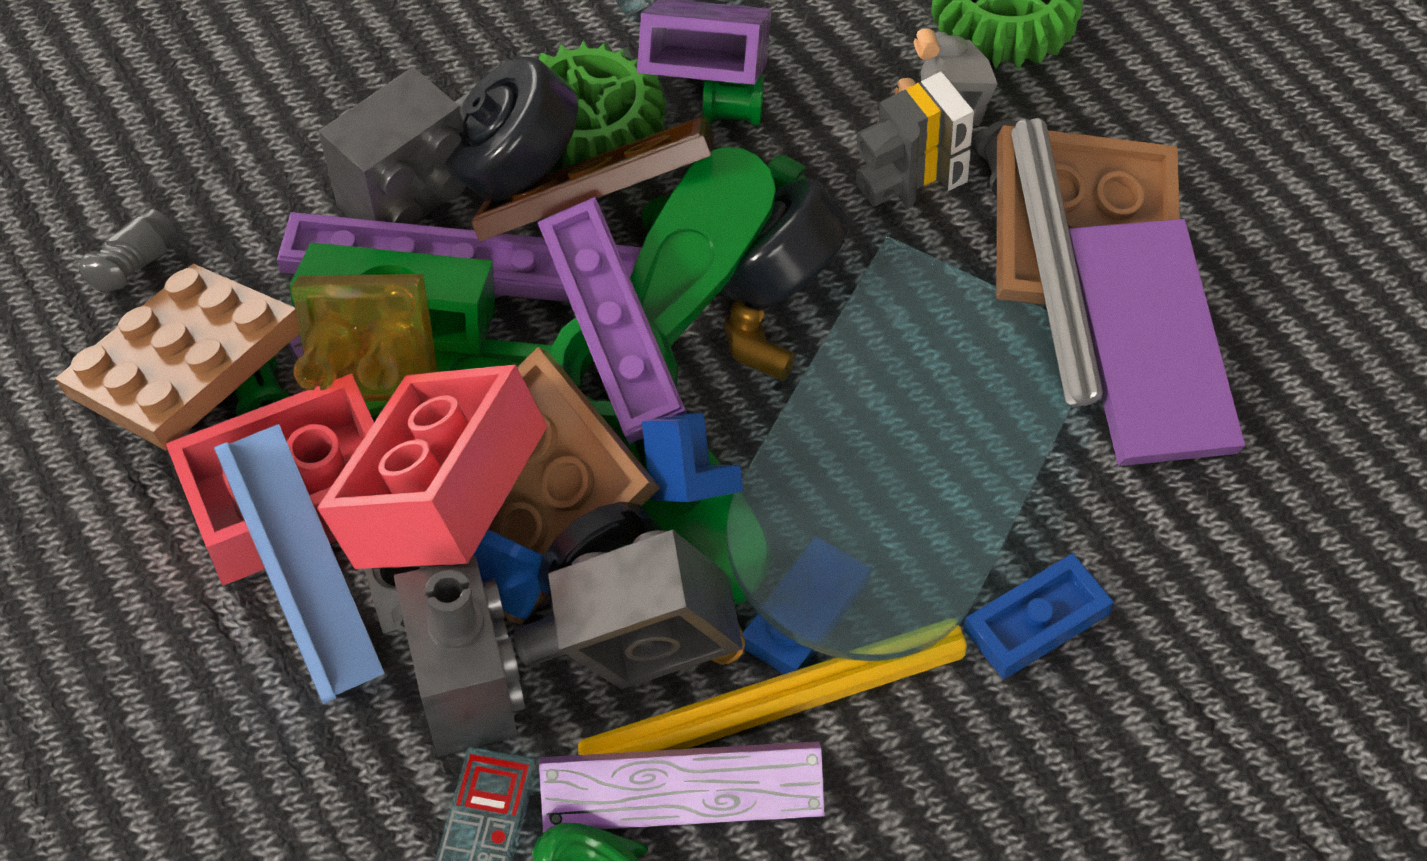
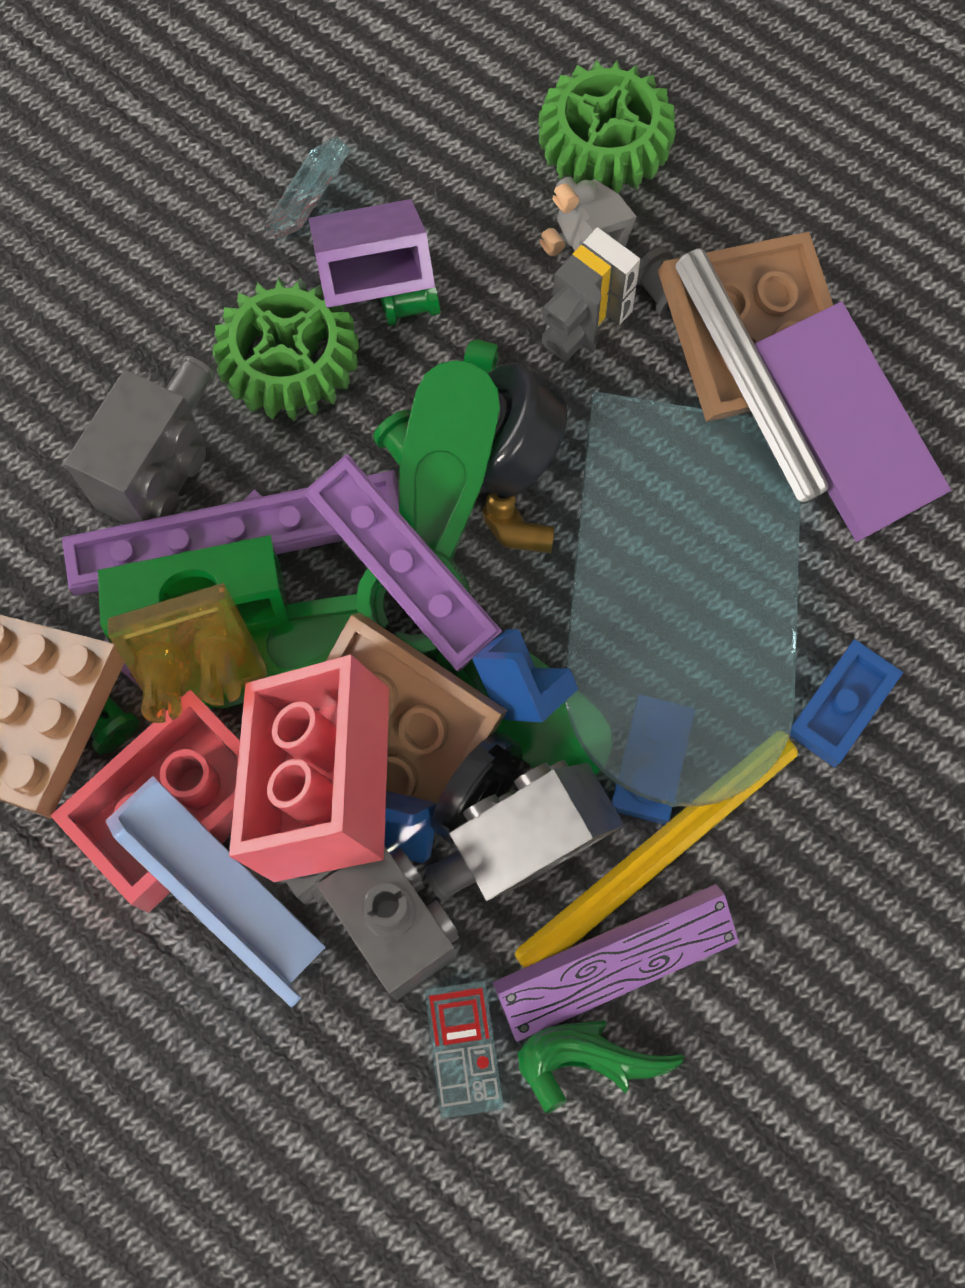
camera: 20 degrees left, 15 degrees up
(513, 129) = (238, 398): black wheel -> none
(598, 177) = (328, 423): reddish brown tile -> none

